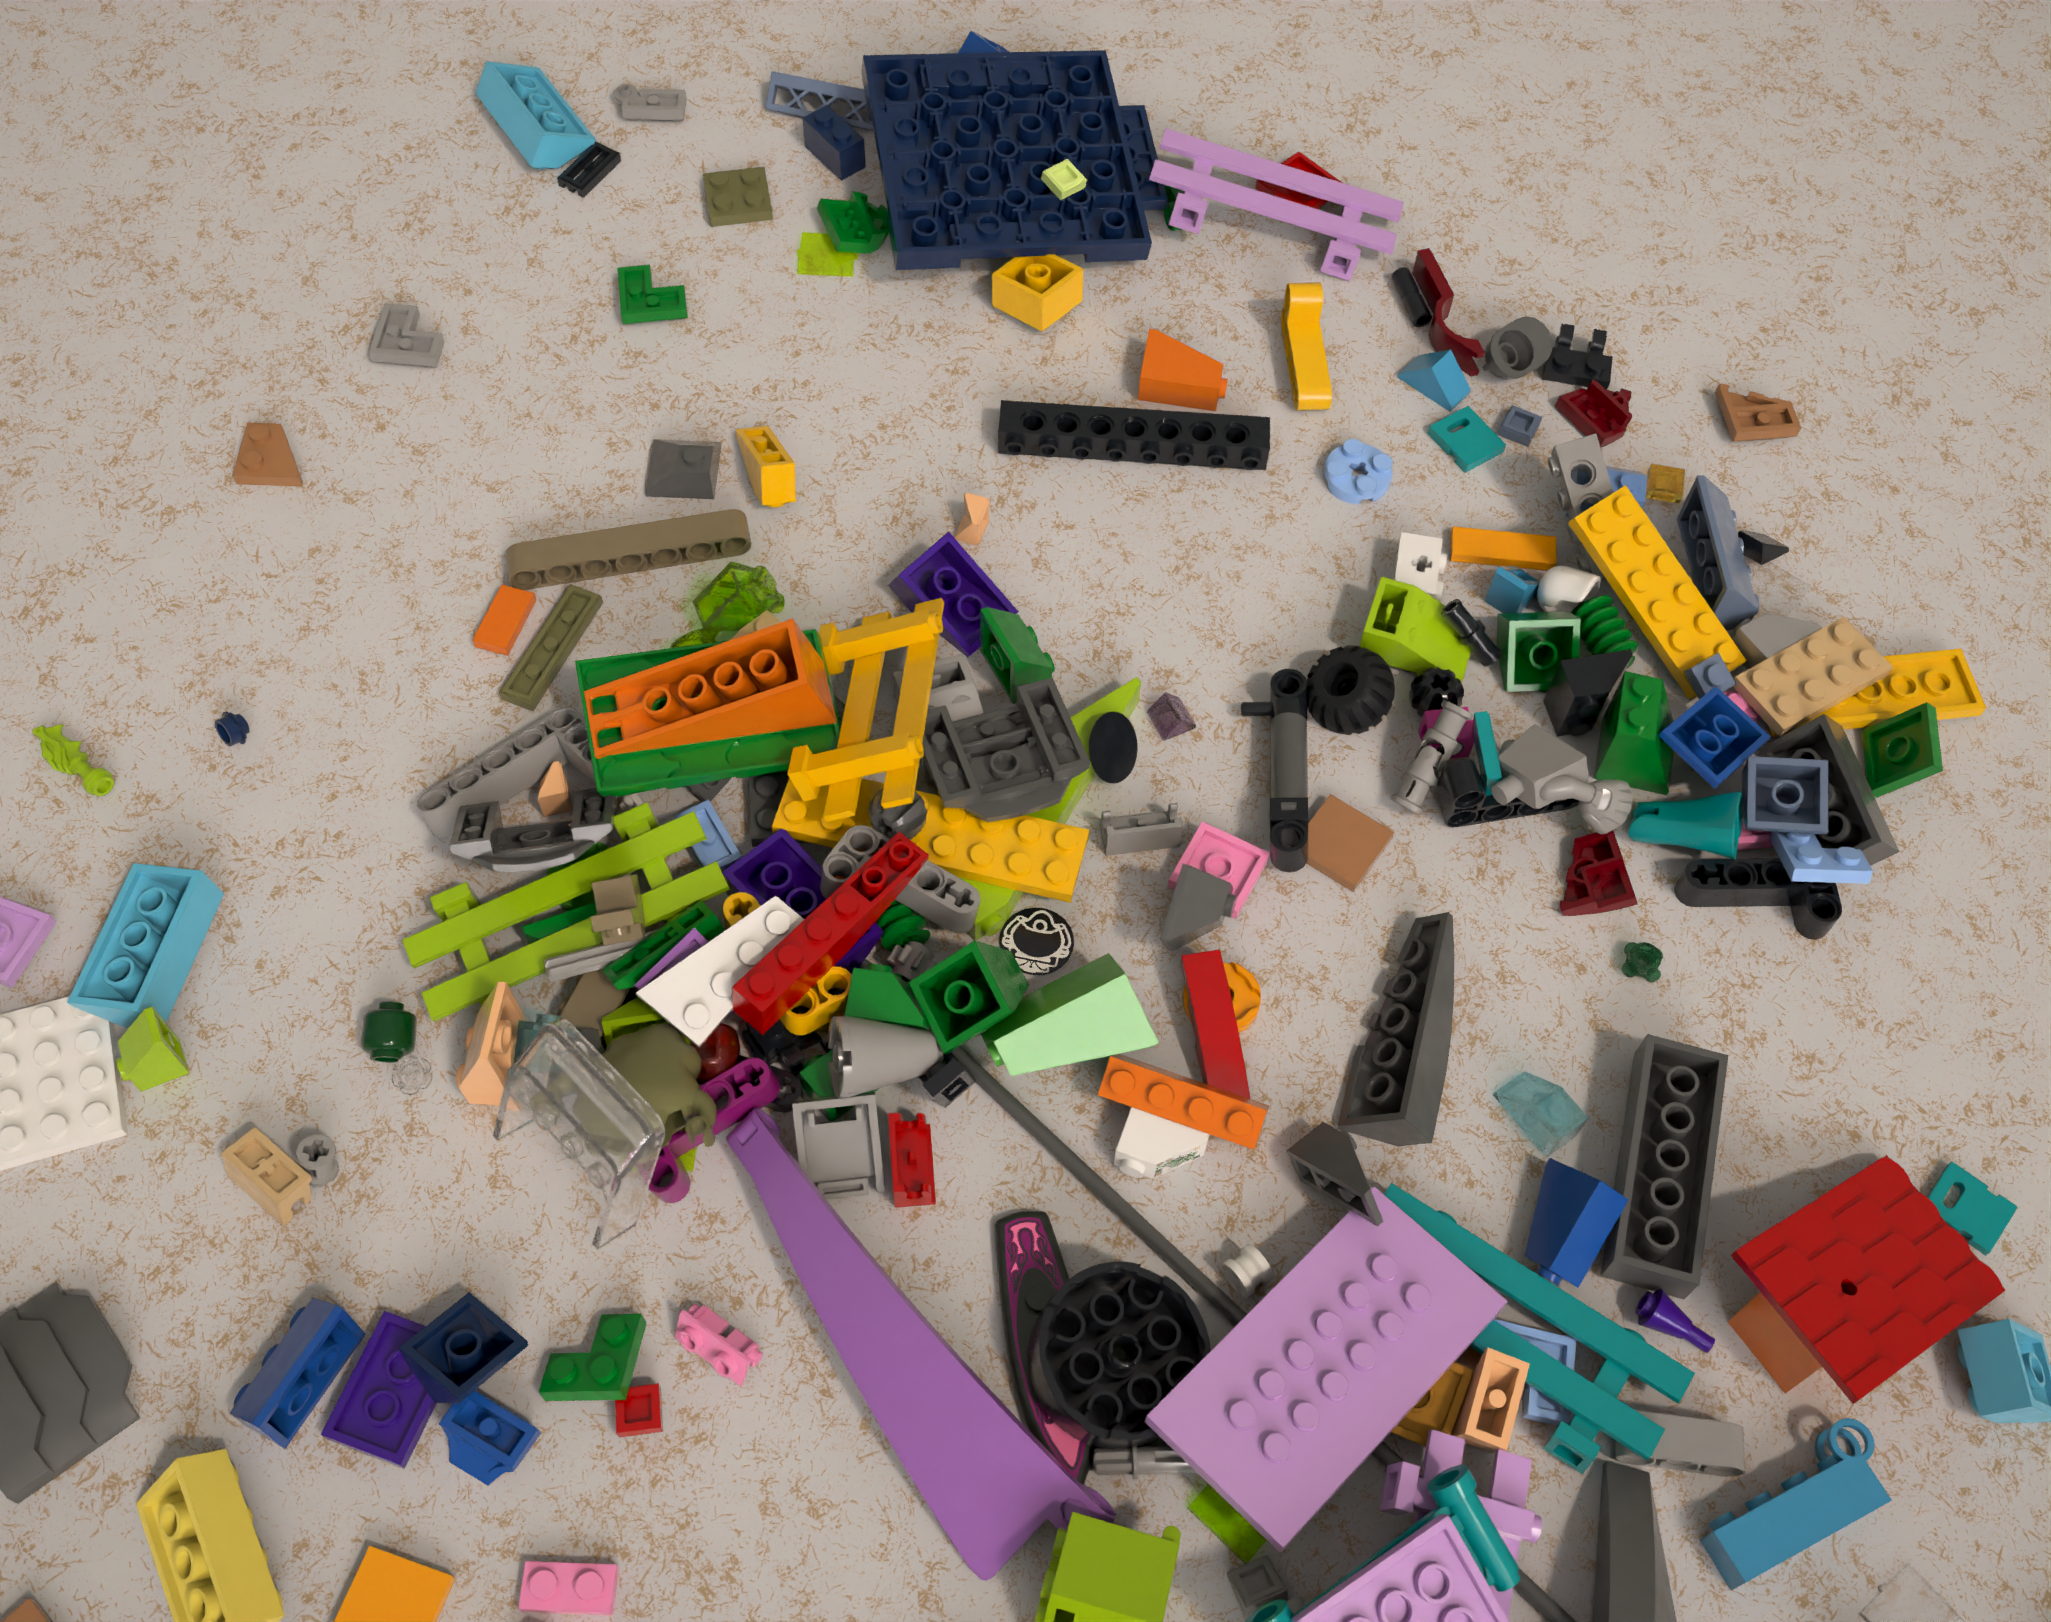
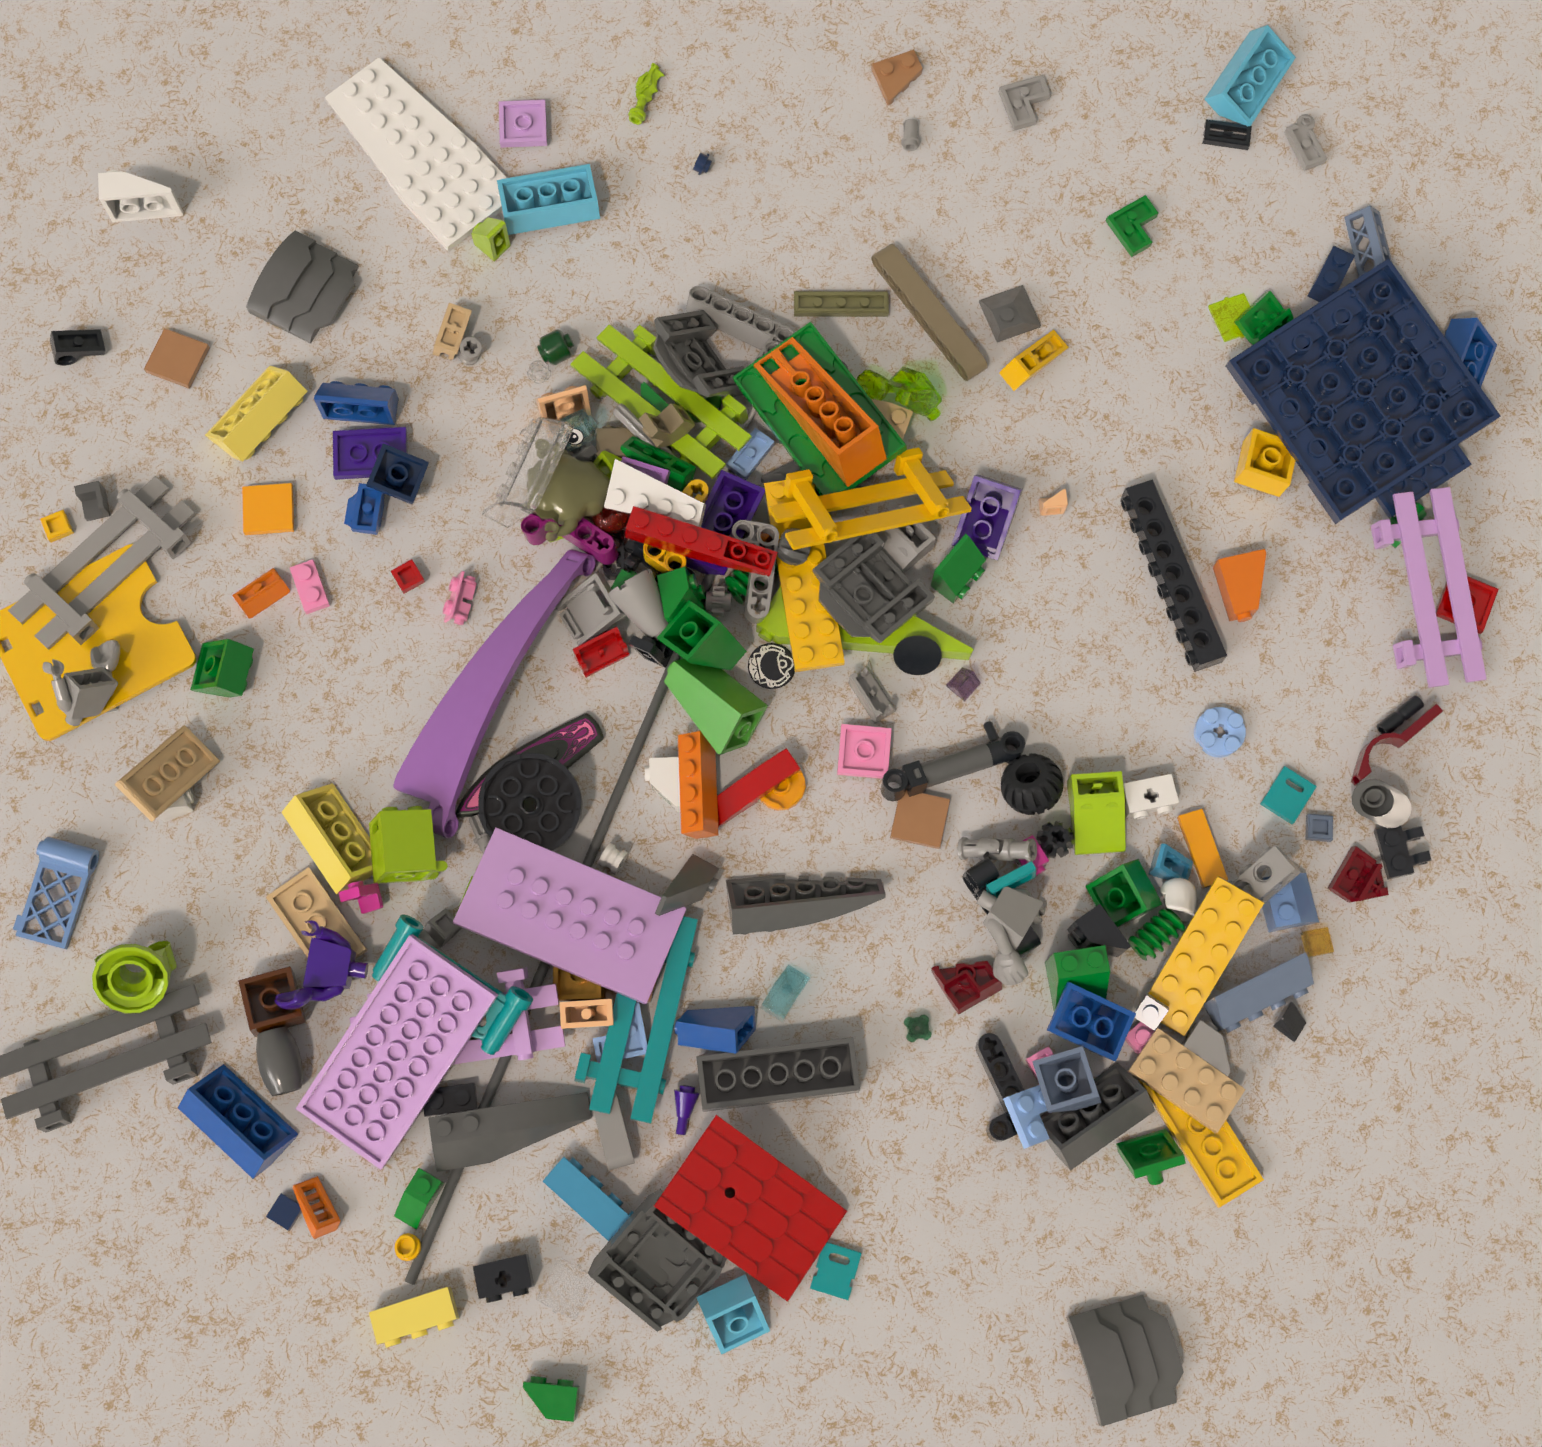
camera: 65 degrees right, 15 degrees up
(371, 475) = (910, 138): none -> light grey pin
(504, 620) = (846, 268): orange tile -> none
(554, 791) = (742, 355): light nougat slope -> none
(603, 1371) = (421, 549): green plate -> none
(737, 196) = (1253, 237): olive plate -> none
(1064, 179) = (1357, 438): yellowish green tile -> none
(1196, 907) = (822, 741): dark grey slope -> none
(1305, 346) = (1307, 659): yellow beam -> none
(1437, 378) = (1330, 757): dark azure slope -> none
(1471, 632) = (1111, 845): black pin -> none
(1700, 824) = (1026, 1029): teal piece -> none
(1756, 415) = (1411, 990): medium nougat wing -> none
(1921, 1455) = (656, 1266): none -> dark grey wedge

